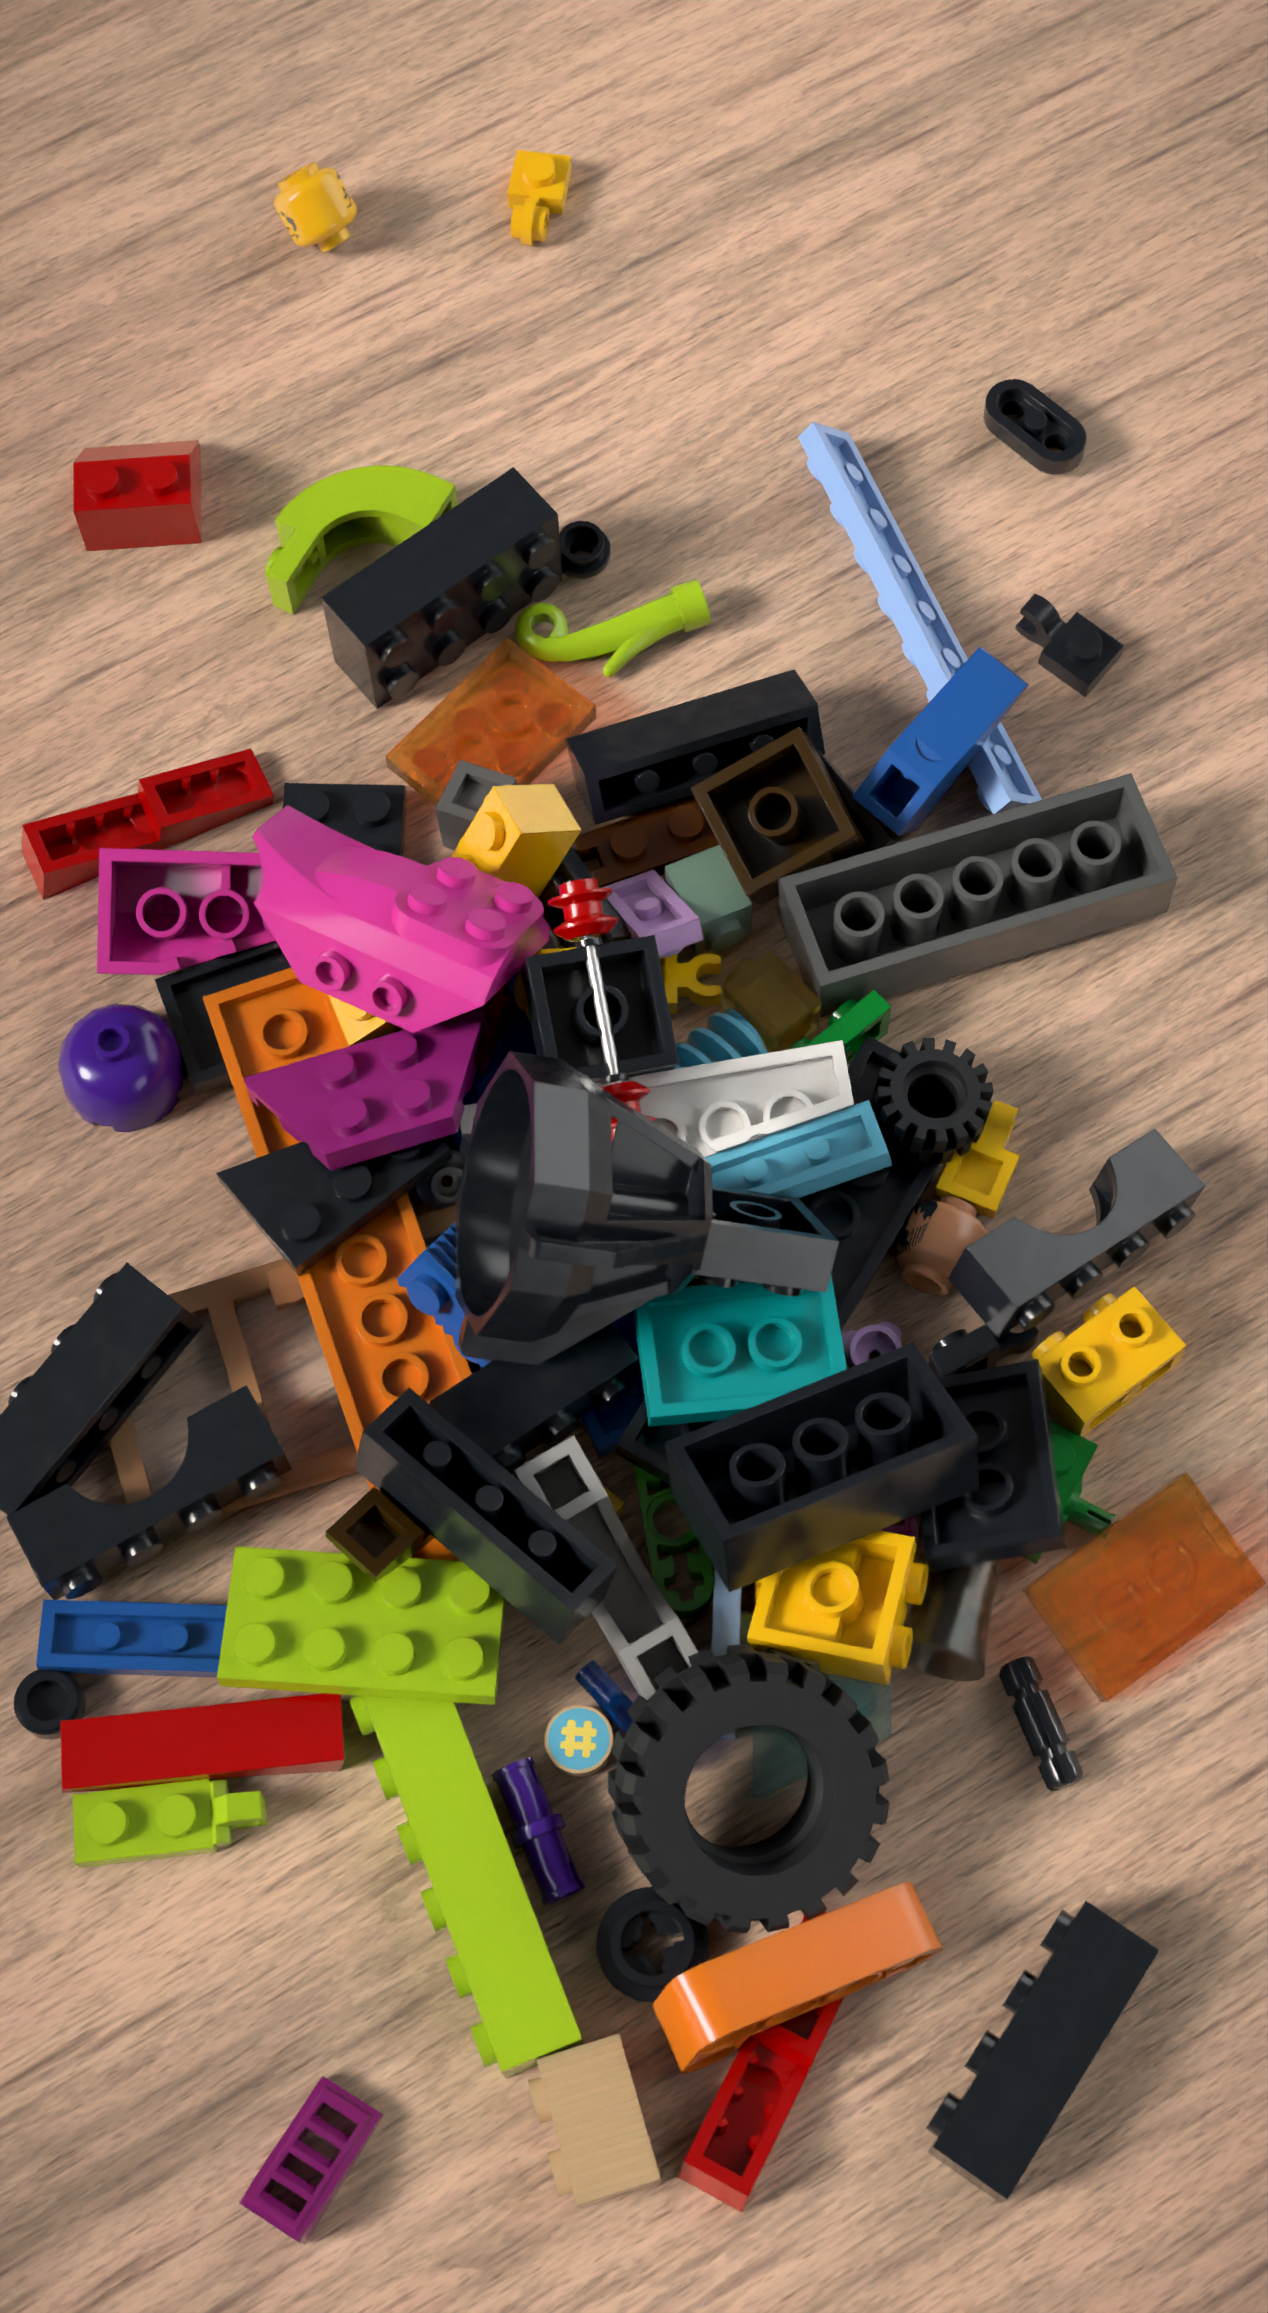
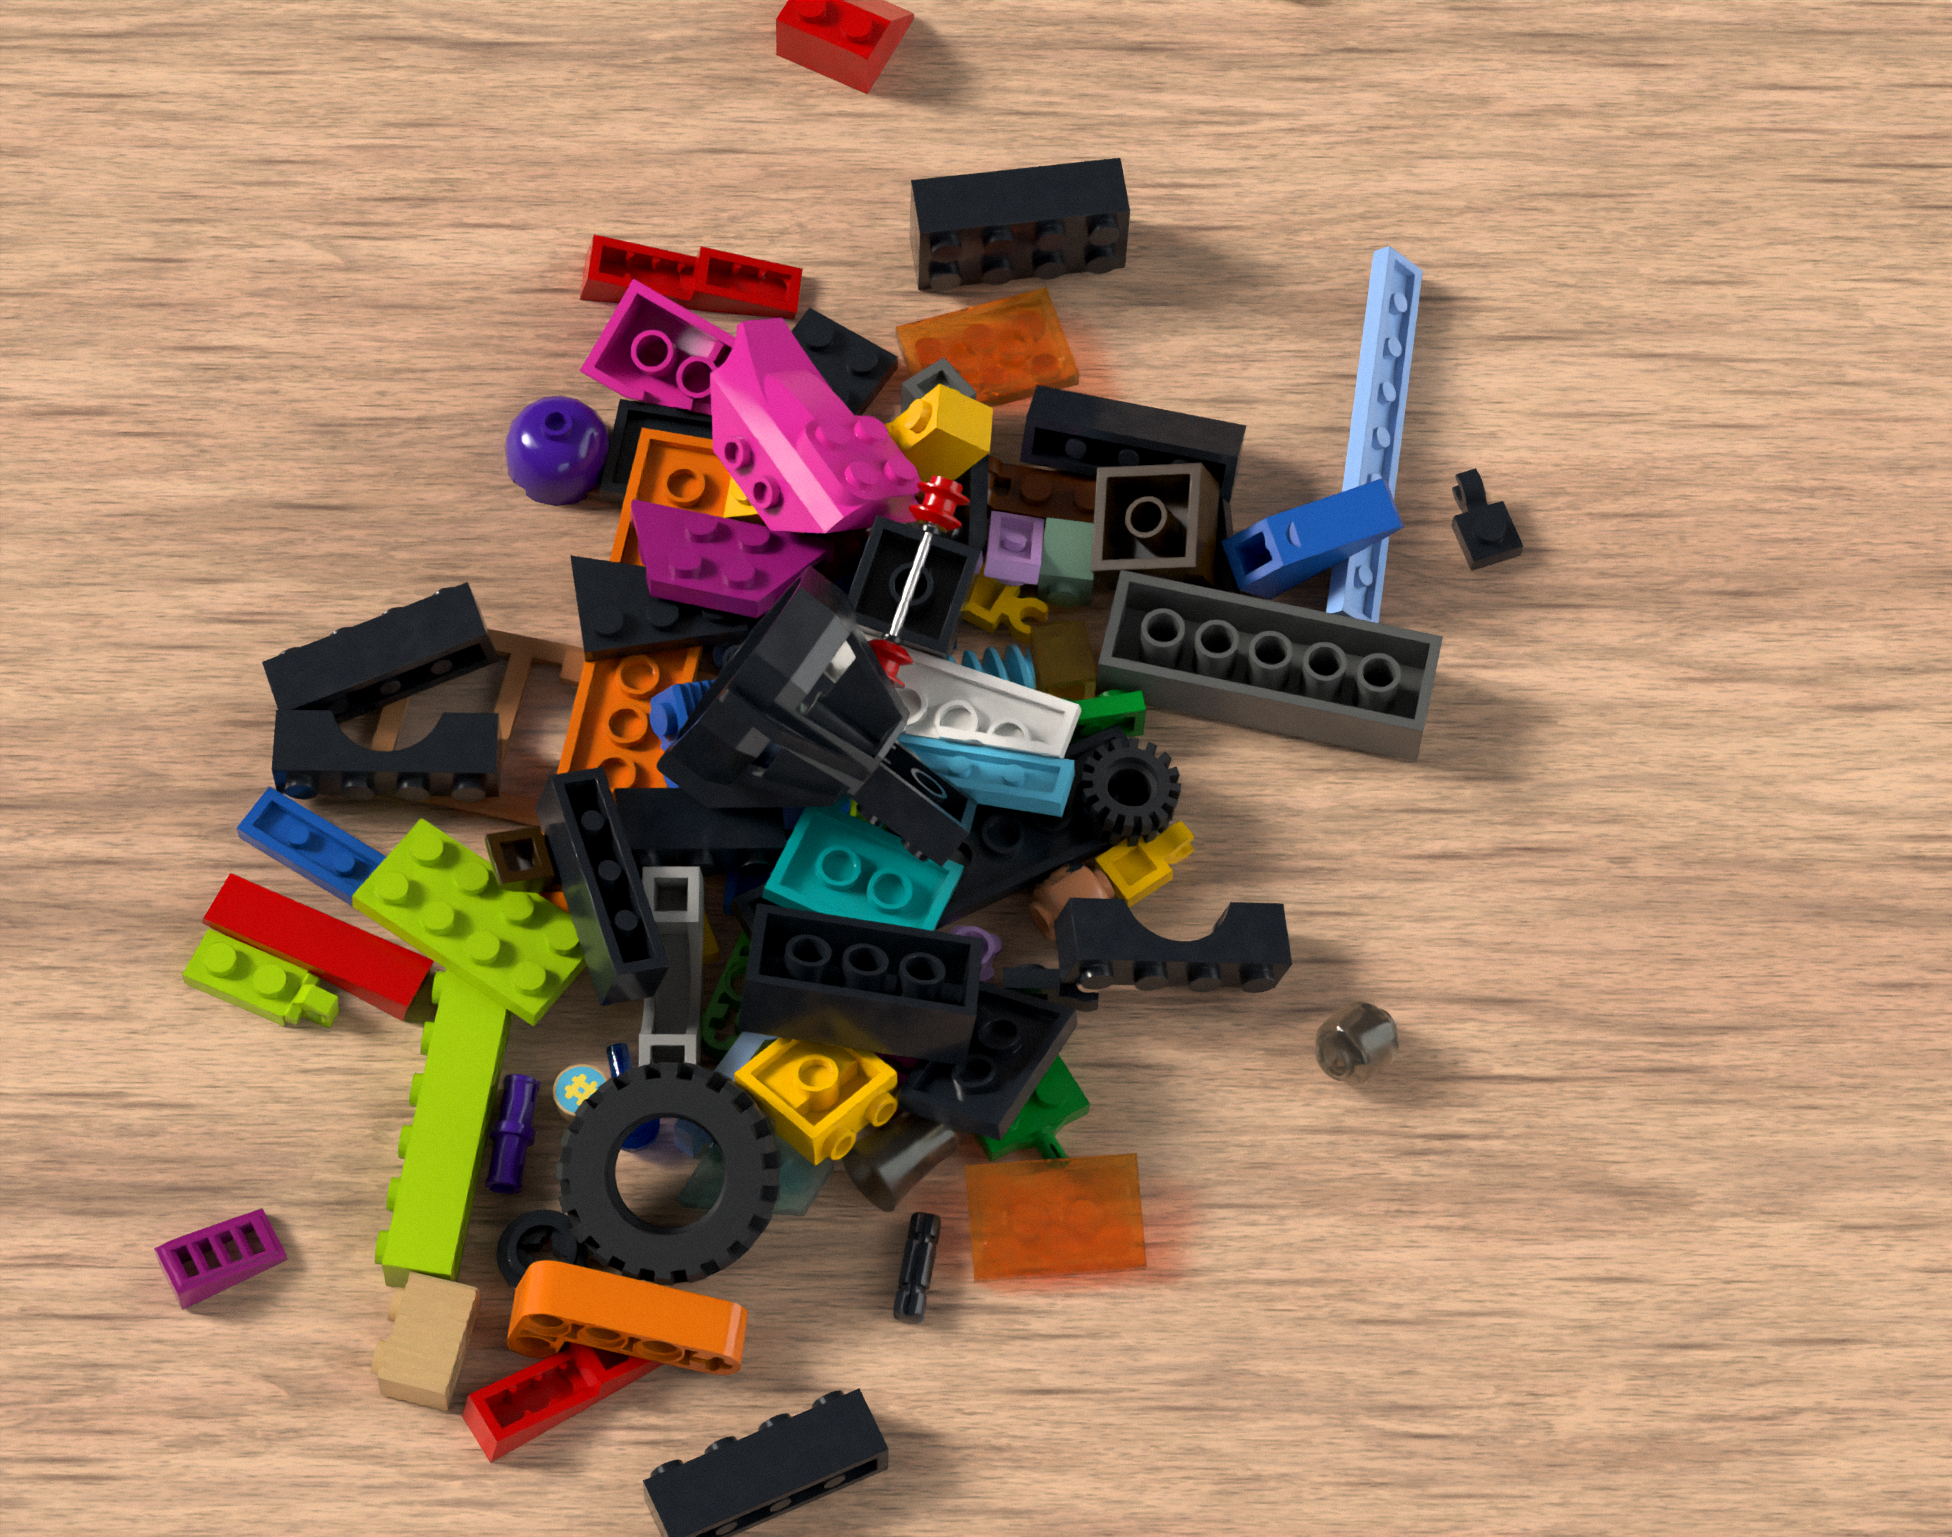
camera: 25 degrees right, 5 degrees down
(47, 1699) = (228, 855): black tile -> none
(347, 511) = (981, 127): lime arch -> none
(585, 537) = (1154, 240): black plate -> none
(625, 634) = (1140, 332): lime plant -> none
(1039, 427) = (1572, 346): black plate -> none
(1106, 1360) = (1135, 1049): yellow brick -> none

